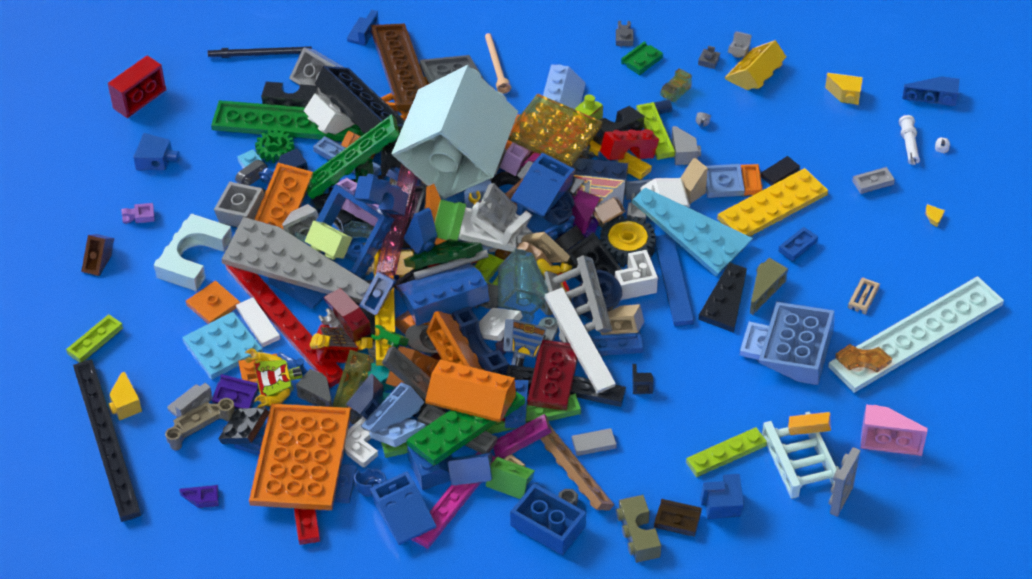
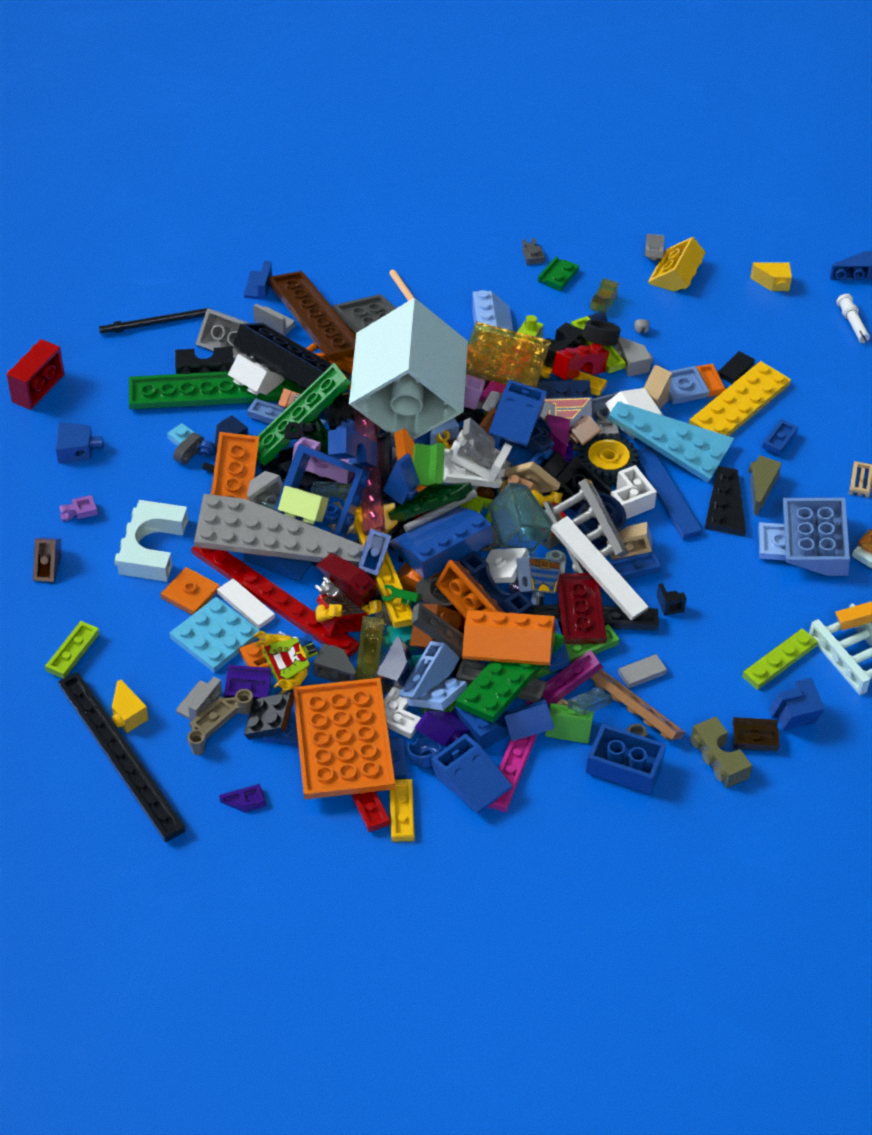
camera: 15 degrees left, 0 degrees up
(238, 202) = (188, 482): light grey brick -> none
(273, 144) = (204, 415): green gear -> none
(335, 531) = (402, 811): none -> yellow tile
(348, 171) = (301, 430): none -> black piece
(364, 65) = (273, 319): none -> light grey panel
(390, 461) = (441, 727): none -> dark purple slope
(533, 461) = (589, 701): none -> clear light blue plate
(657, 120) = (601, 332): none -> black tyre
(709, 58) = (626, 264): dark grey tile -> none
(873, 180) = (832, 363): light grey plate -> none

